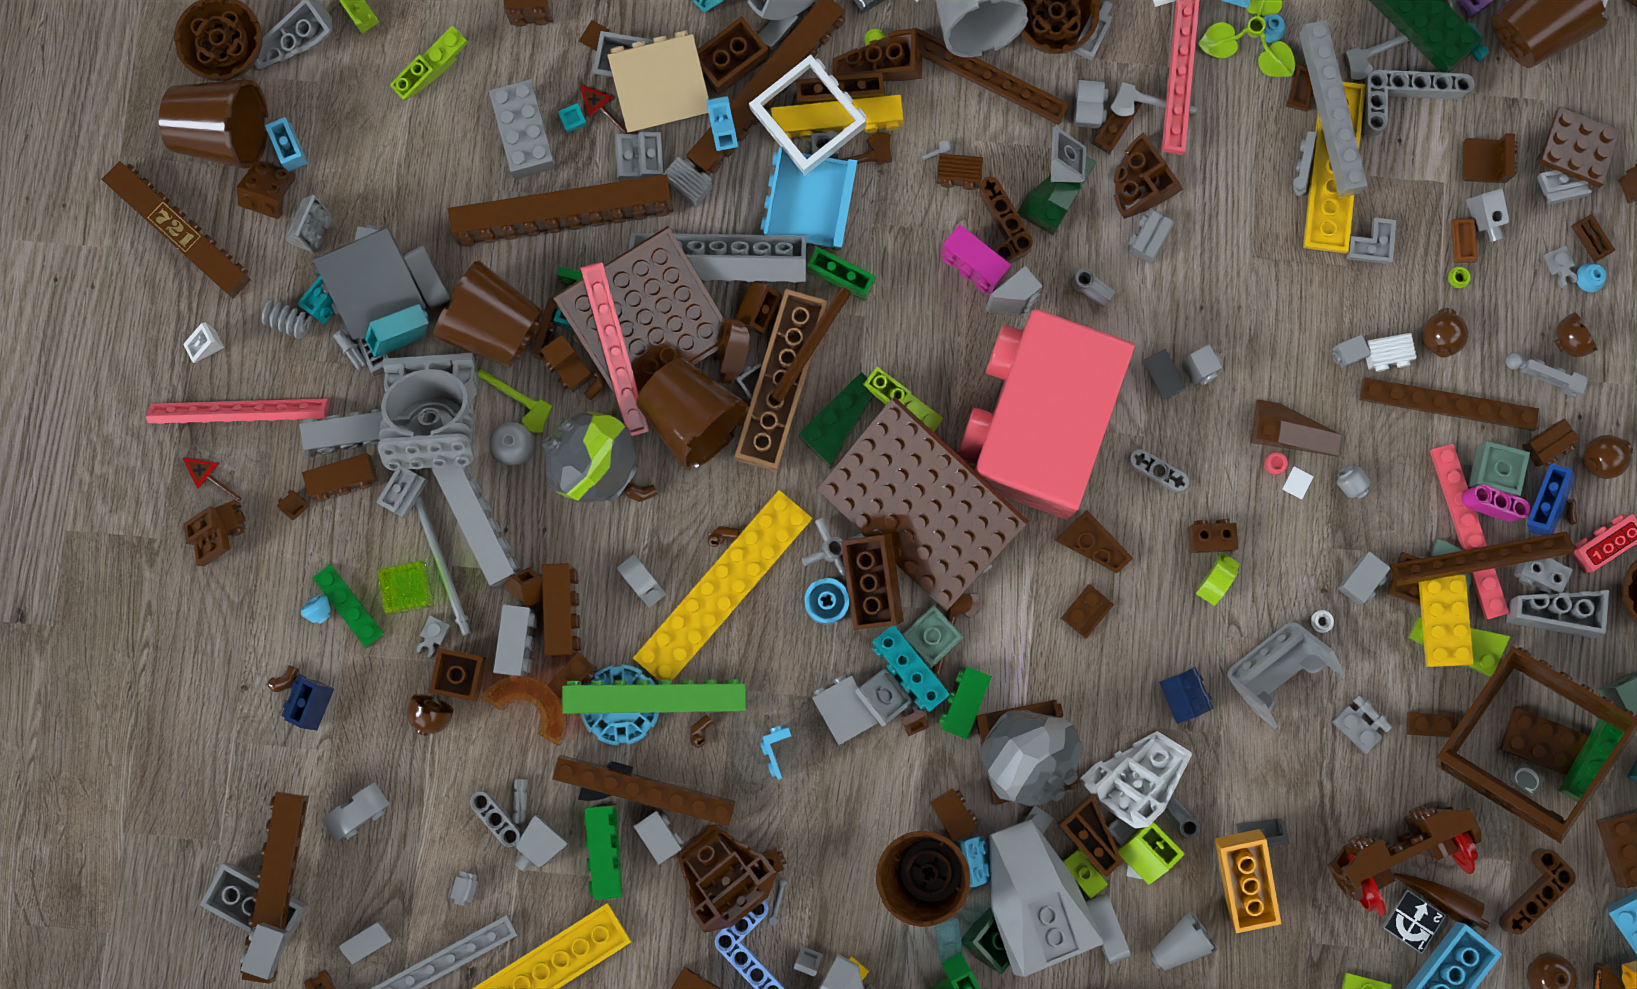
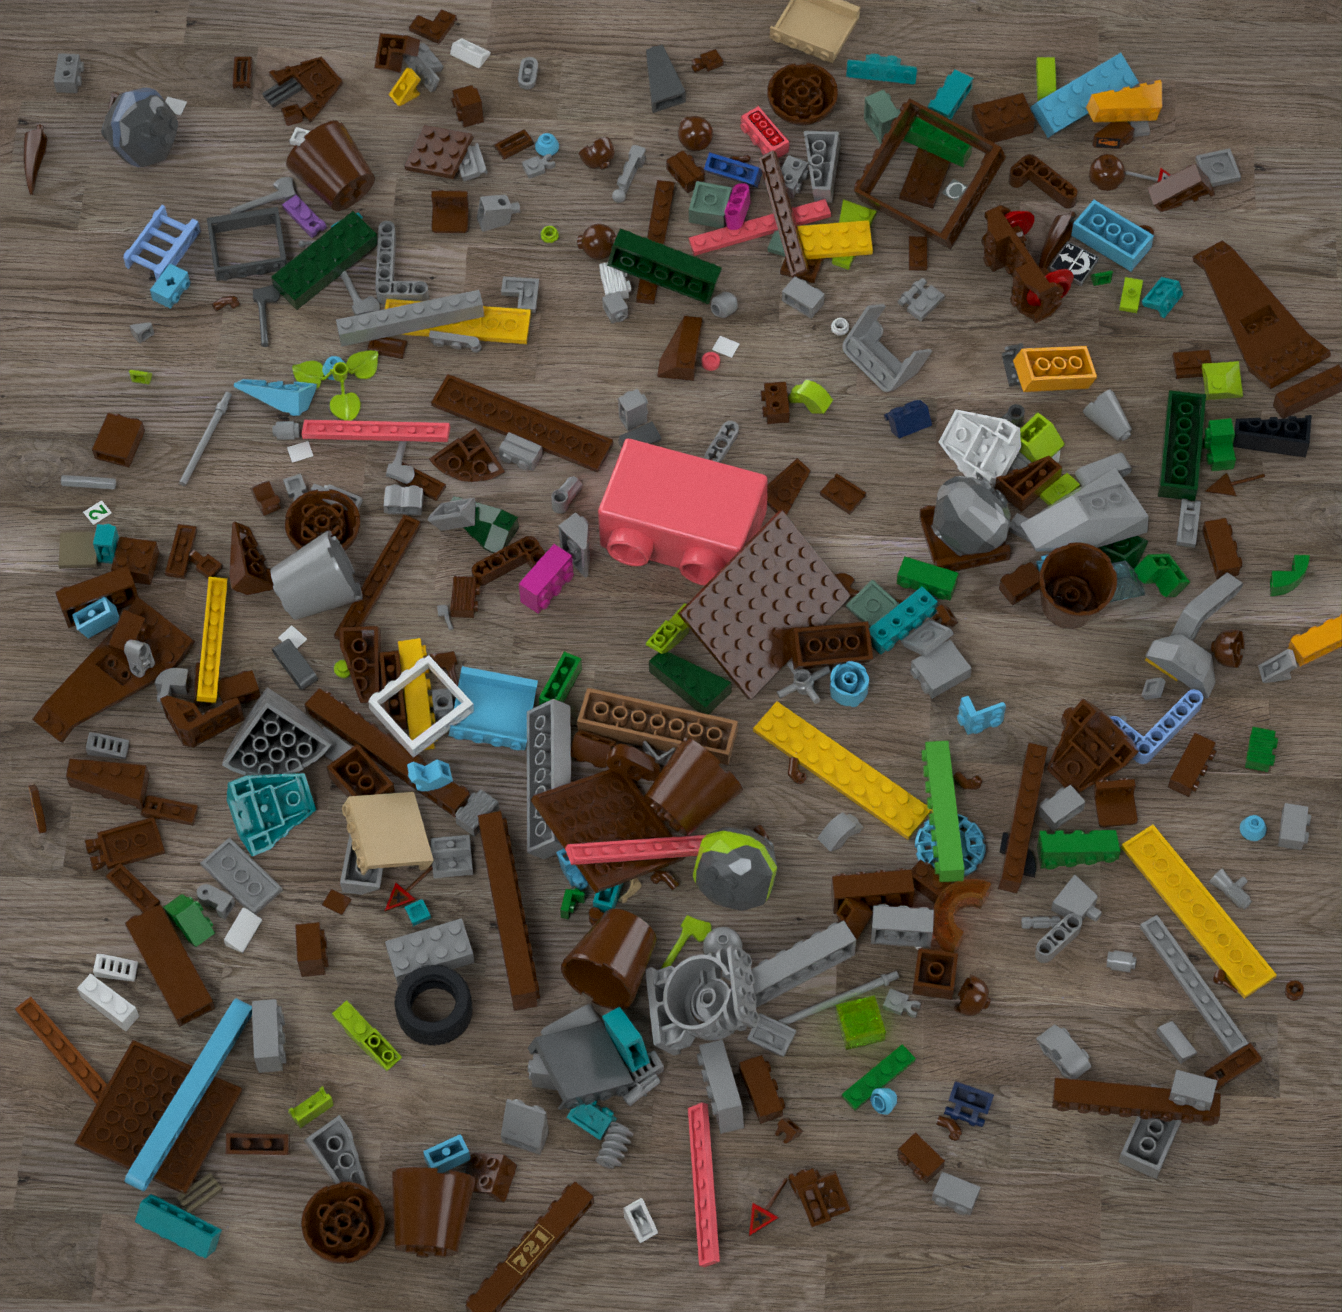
camera: 90 degrees left, 20 degrees down
(204, 679) = (955, 1194): none -> light grey brick
(244, 643) = (920, 1158): none -> reddish brown brick
(442, 105) = (430, 978): none -> black tyre
(563, 359) = (649, 900): reddish brown brick -> none
(659, 901) = (1115, 802): none -> reddish brown bracket
(811, 344) = (627, 696): reddish brown axle -> none
(1191, 240) = (508, 415): none -> reddish brown plate
(1392, 954) = (1101, 278): none -> green slope
(1402, 407) = (664, 266): none -> dark green brick
(1464, 240) = (517, 231): dark orange tile -> none

